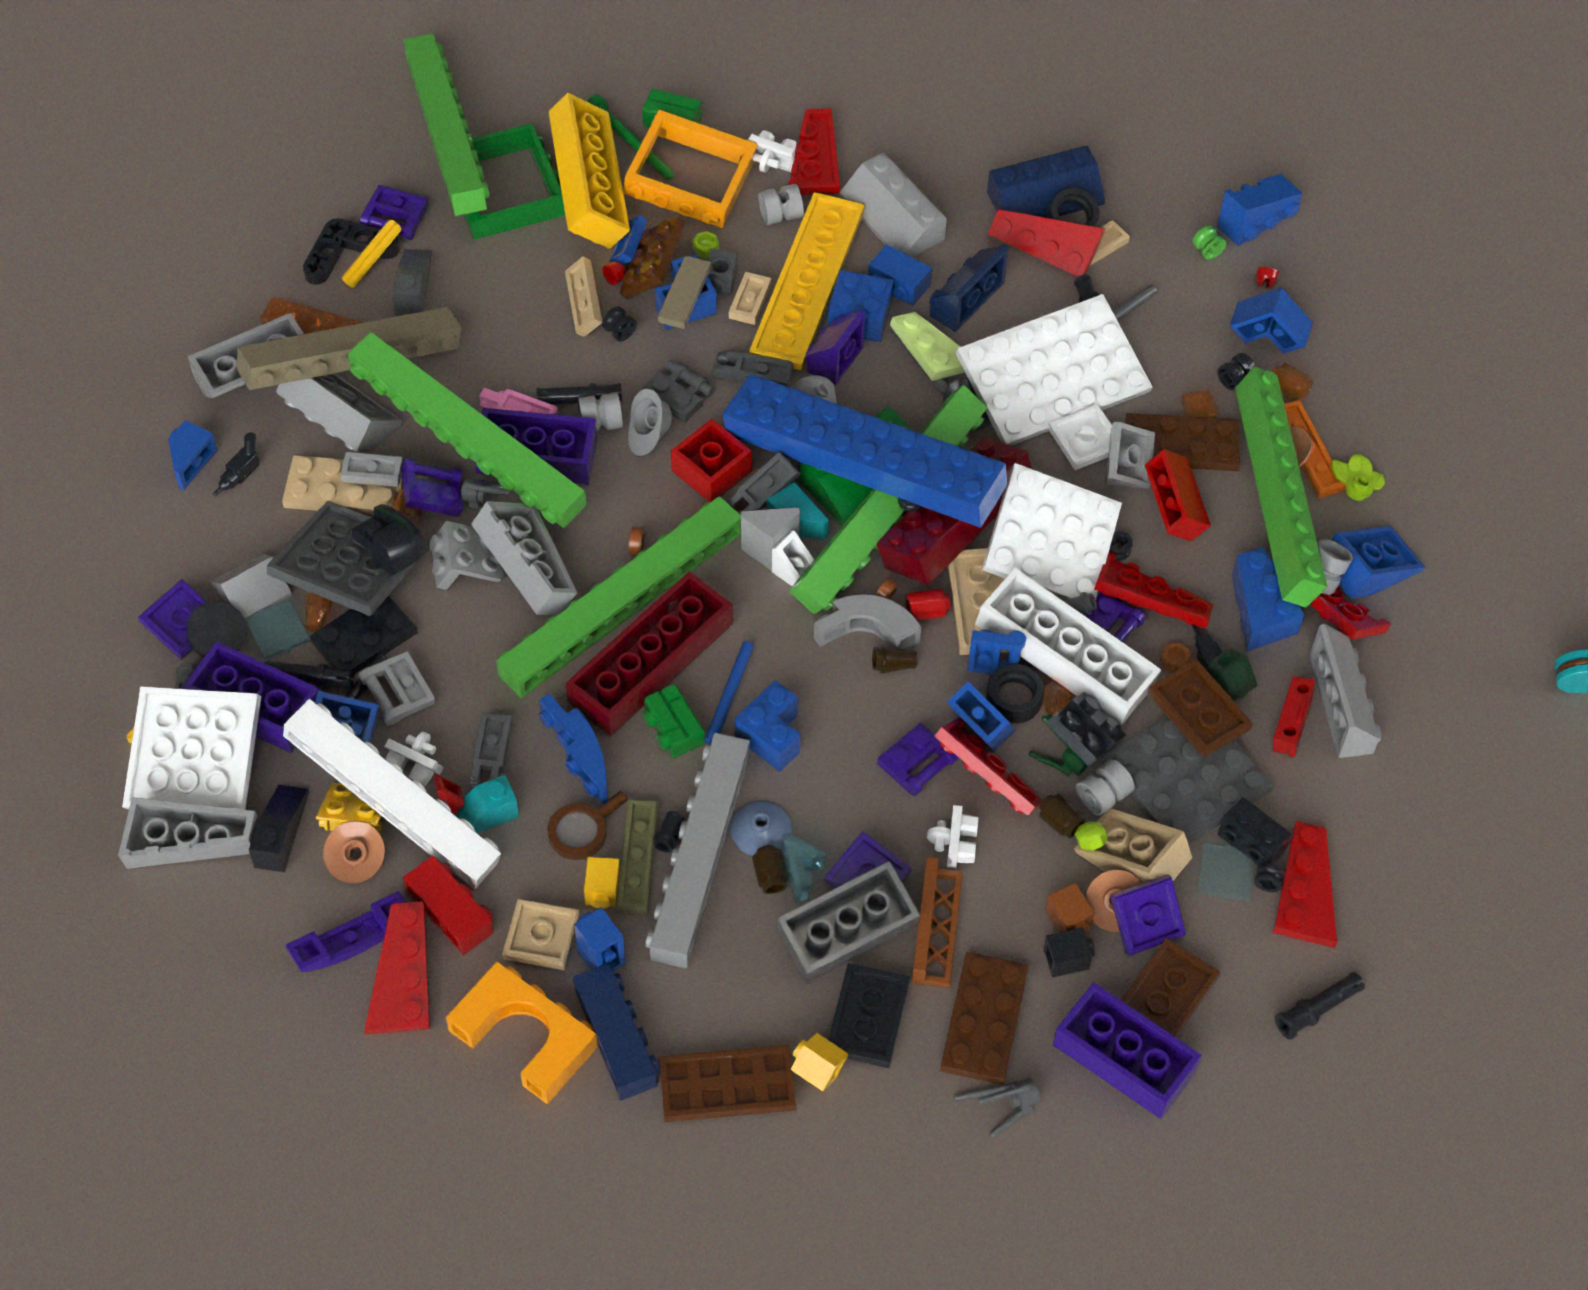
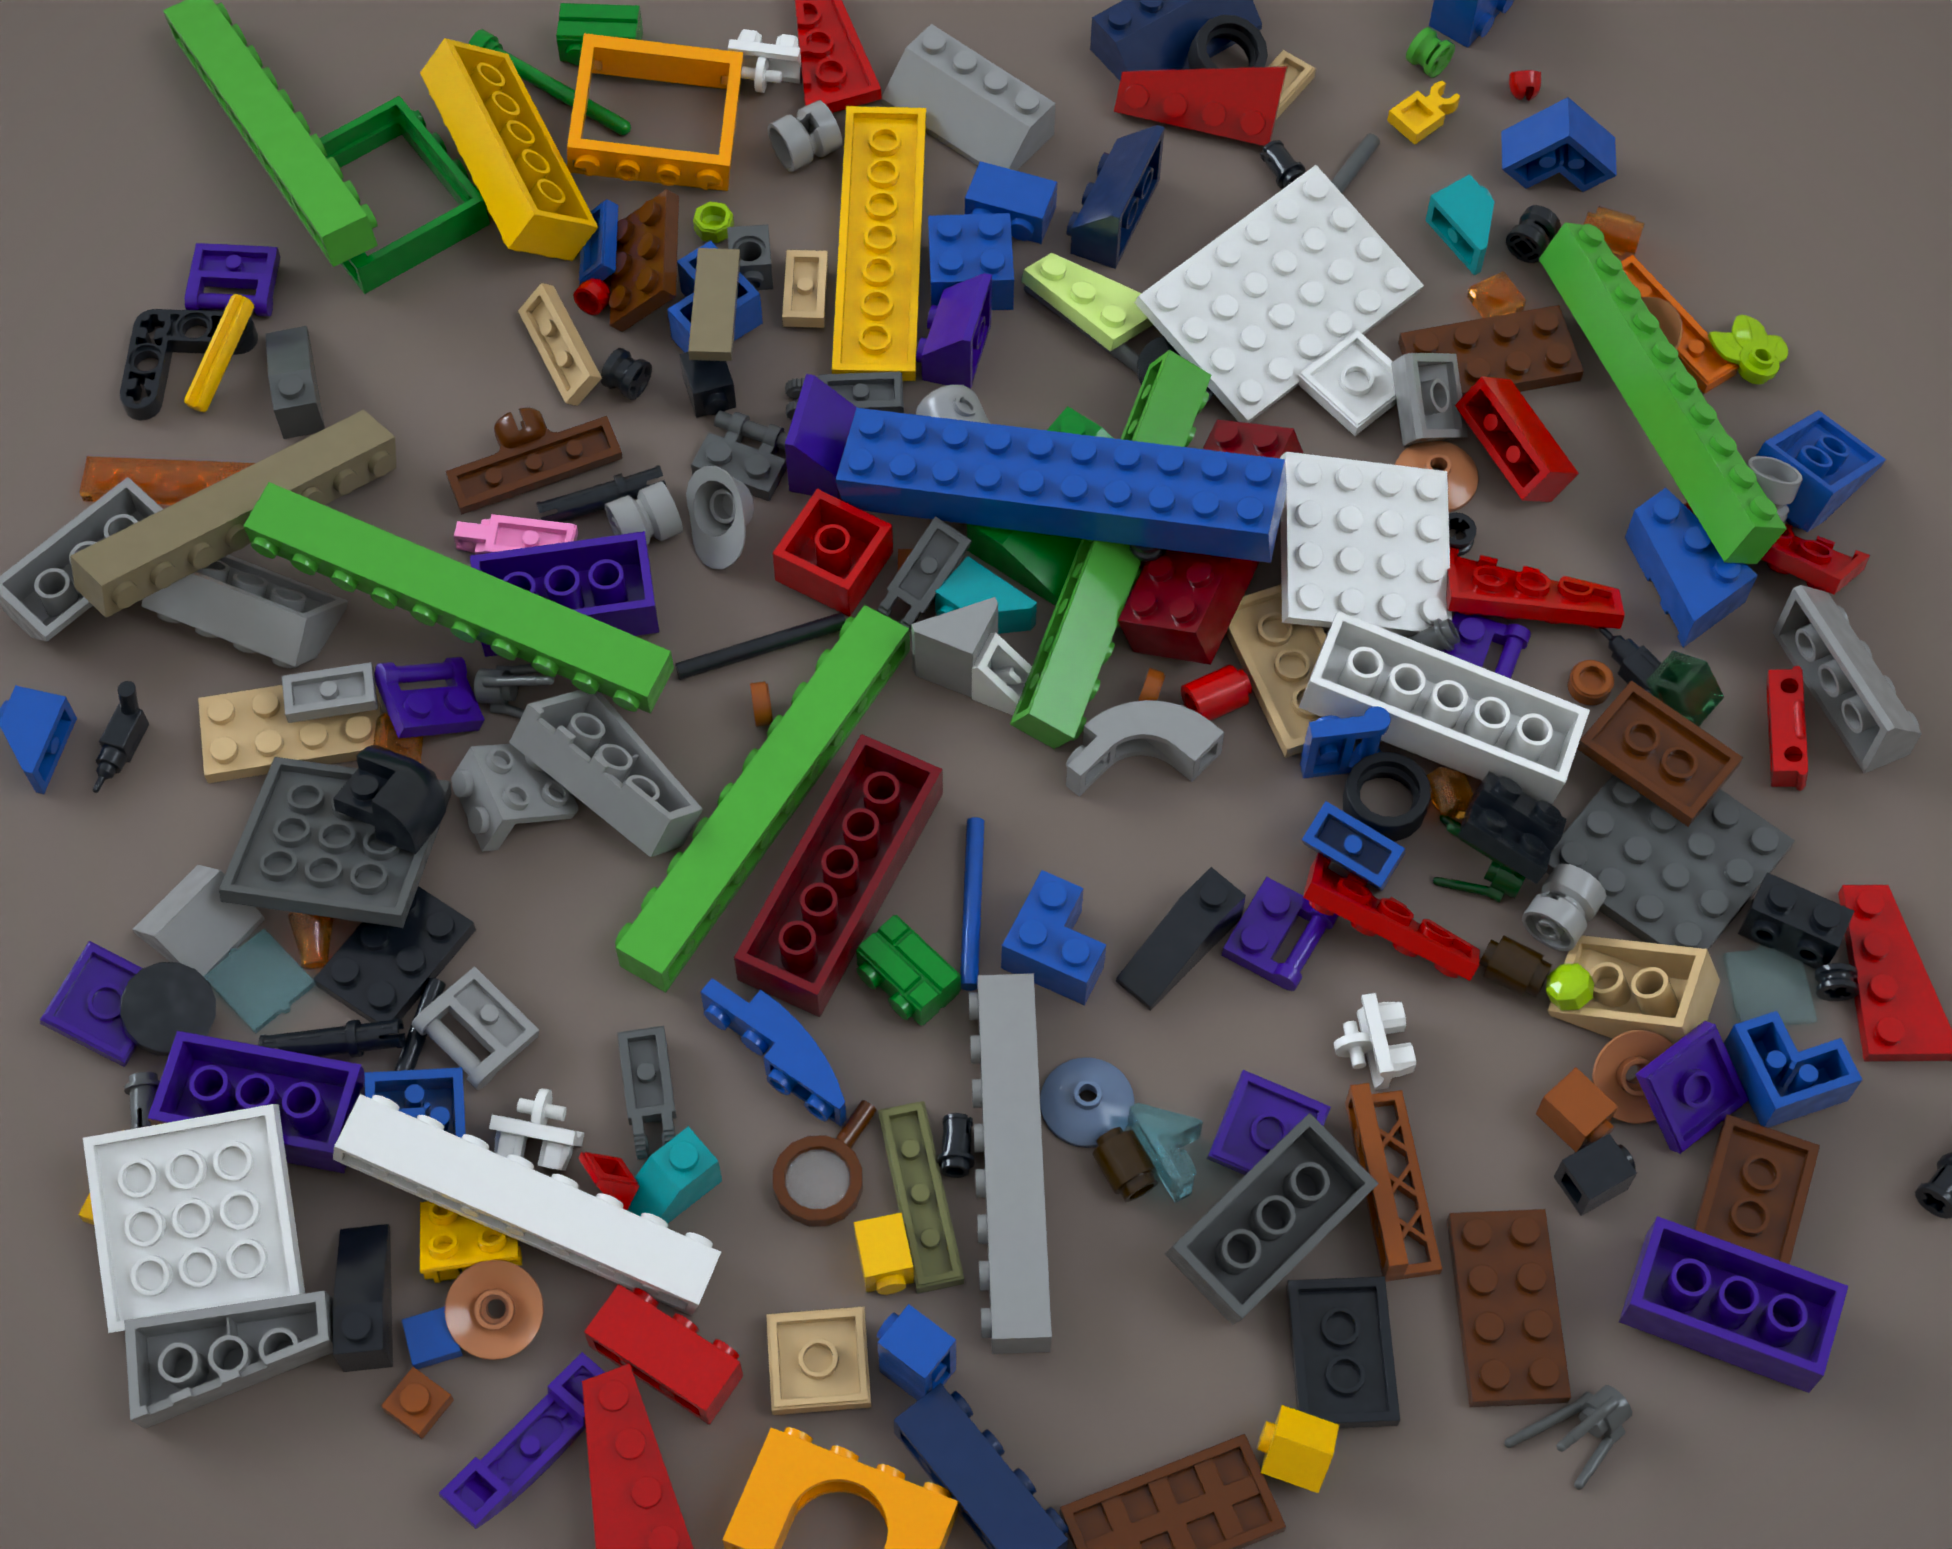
camera: 15 degrees left, 5 degrees up
(291, 895) = (417, 1403): none -> dark orange plate
(310, 861) = (429, 1339): none -> blue tile
(543, 361) = (531, 459): none -> reddish brown plate
(647, 507) = (760, 646): none -> black bar
(668, 343) = (708, 385): none -> black brick
(721, 385) = (817, 438): none -> dark purple slope
(854, 745) = (1183, 938): none -> black slope
(892, 659) = (1194, 789): dark brown cone -> none
(1133, 511) = (1460, 468): none -> nougat dish
(1190, 281) = (1422, 115): none -> yellow plate
(1193, 351) = (1463, 220): none -> teal slope
(1215, 928) = (1785, 1081): none -> blue brick

